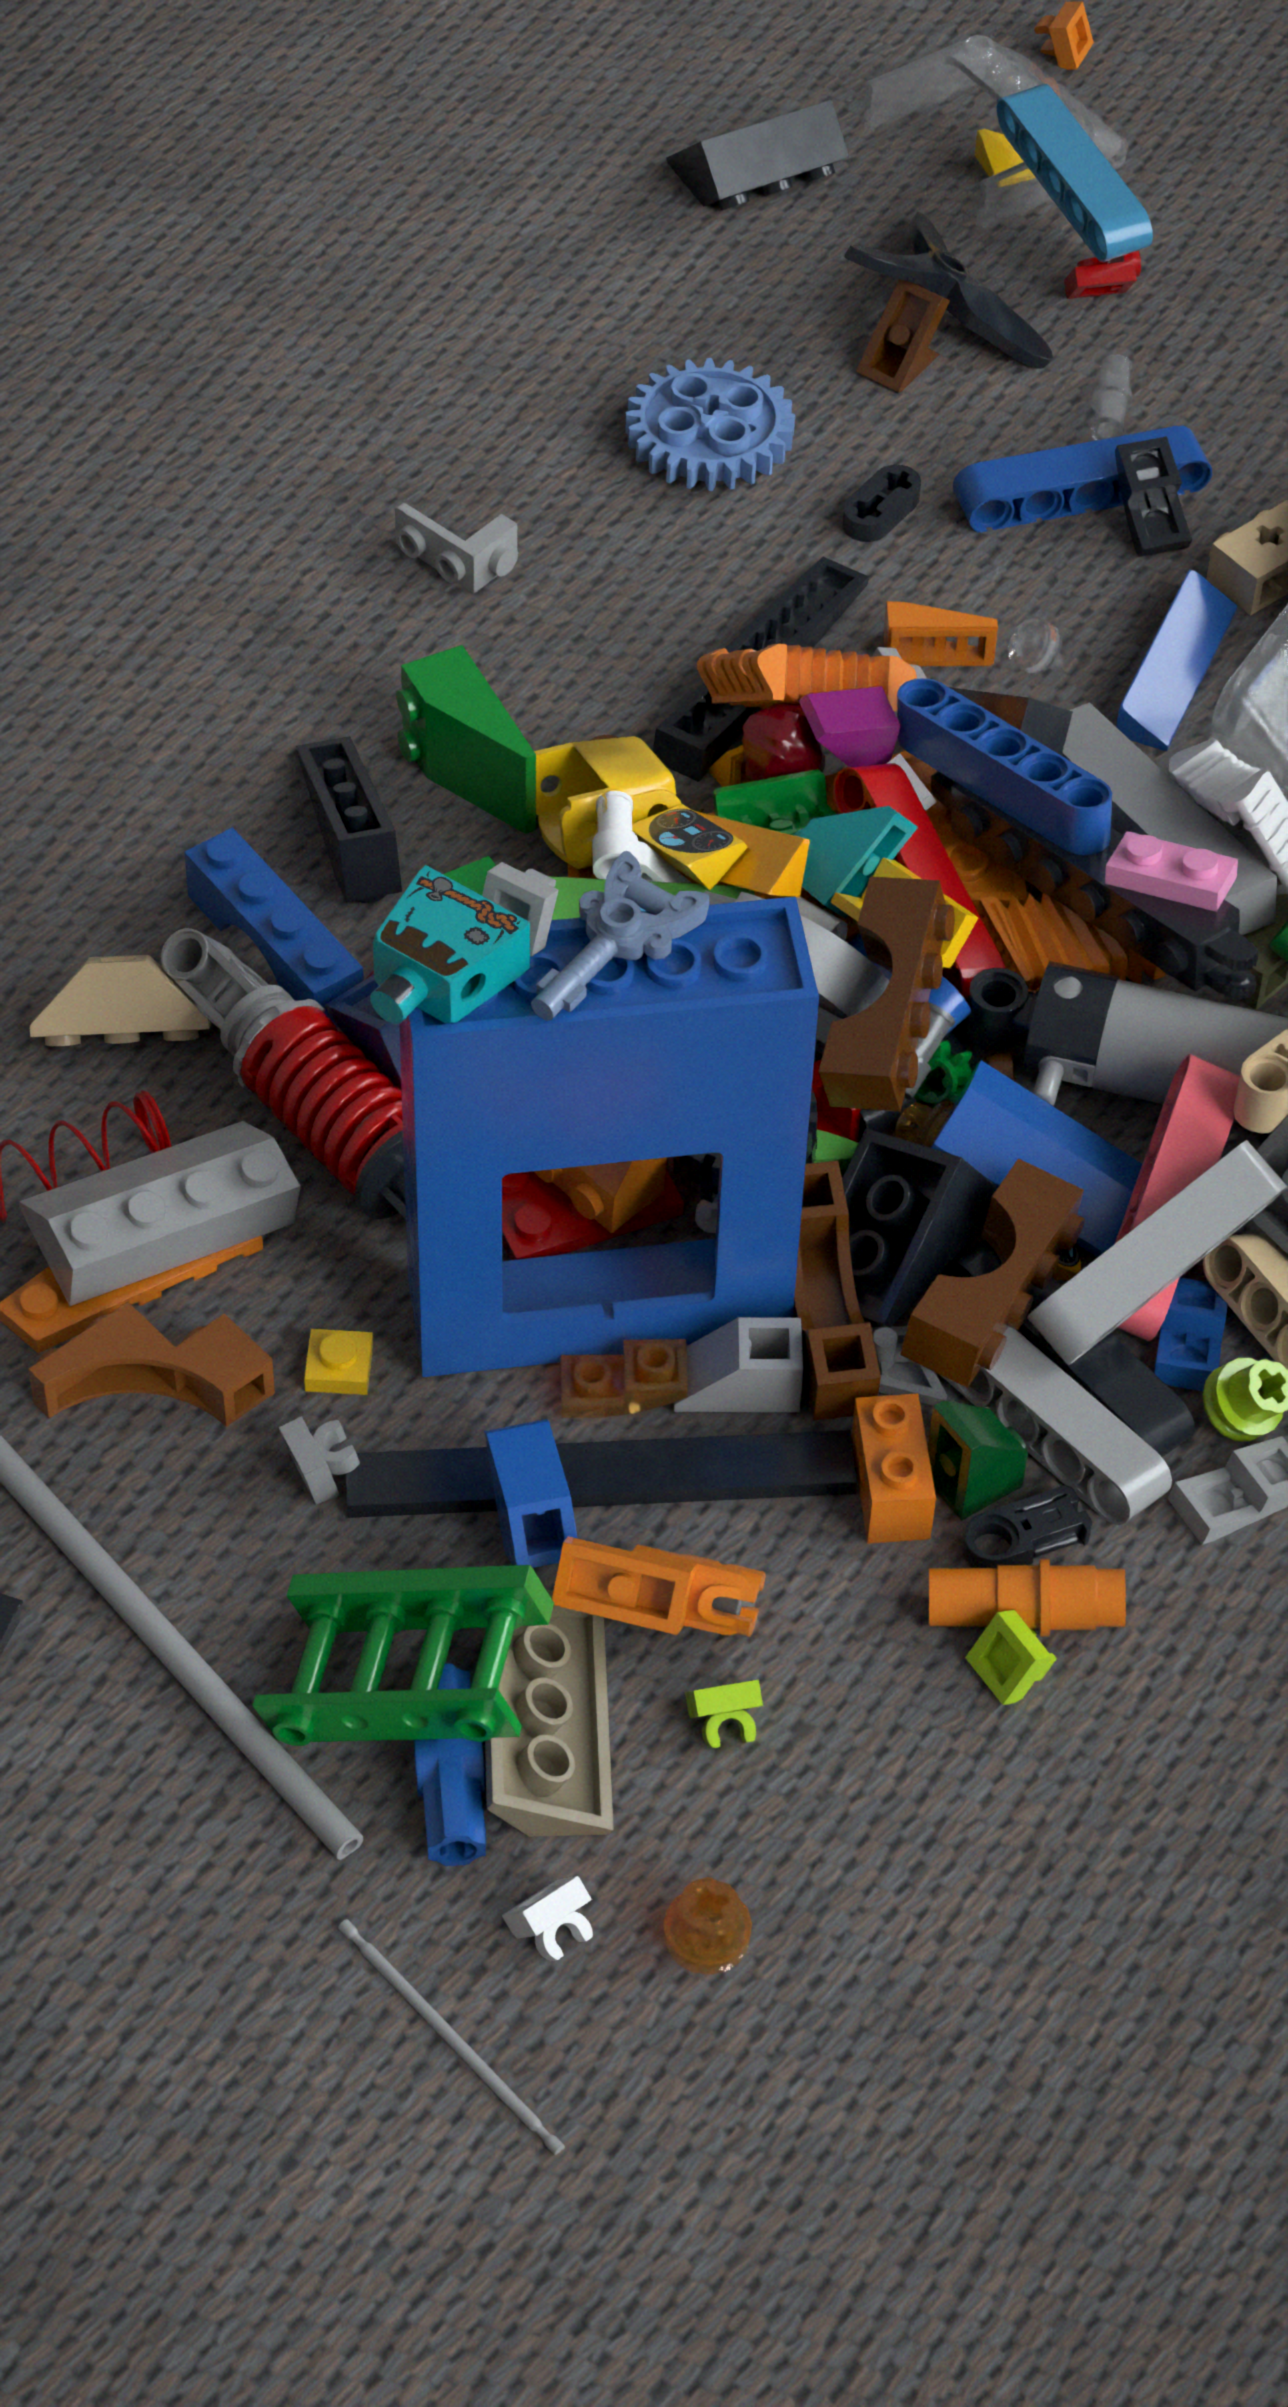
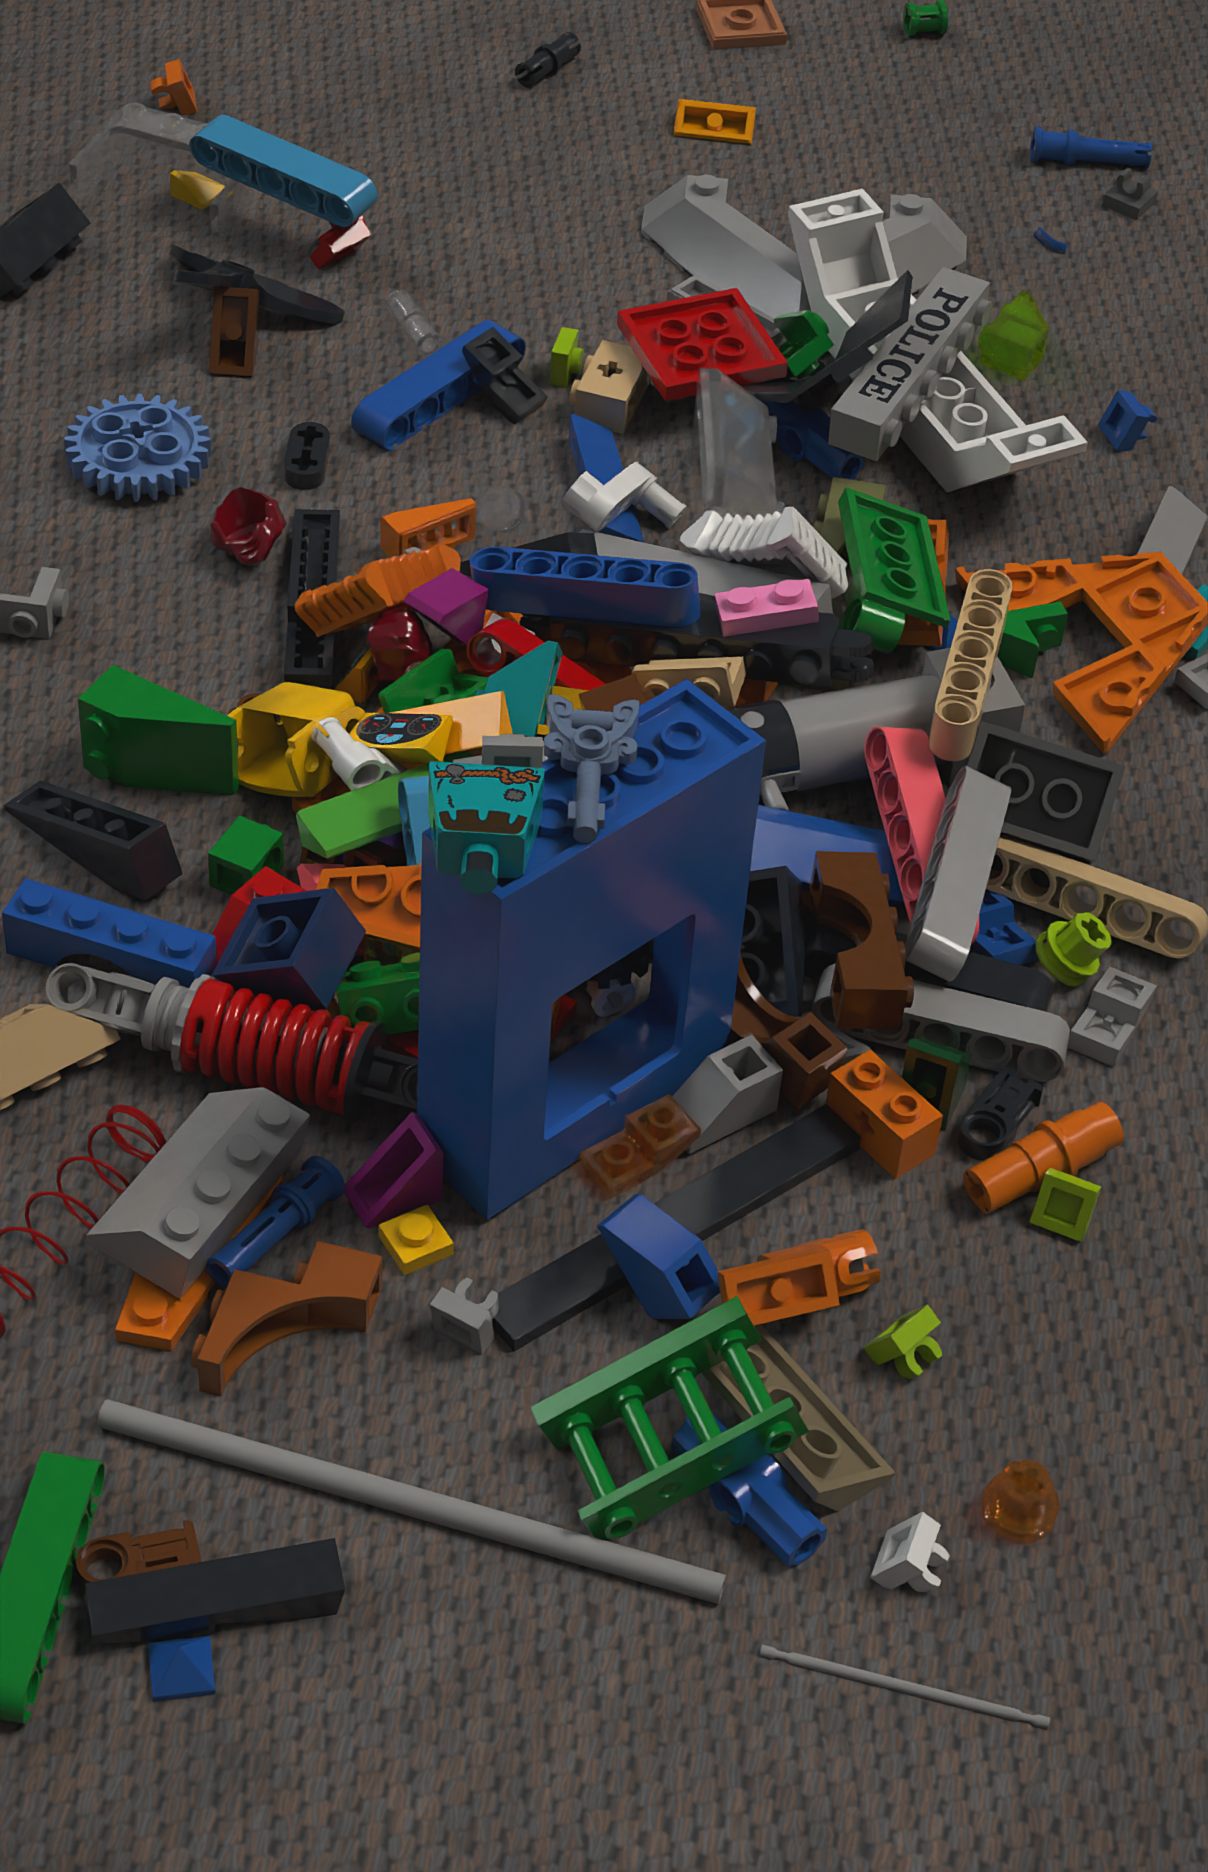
camera: 35 degrees left, 5 degrees down
(240, 1270) = (289, 1208): none -> blue pin
(362, 1290) = (398, 1175): none -> magenta slope
(747, 555) = (247, 525): none -> dark red hair
(1042, 918) = (715, 676): none -> tan bracket
(1126, 685) = (635, 485): none -> white beam
(1243, 500) = (565, 357): none -> lime plate

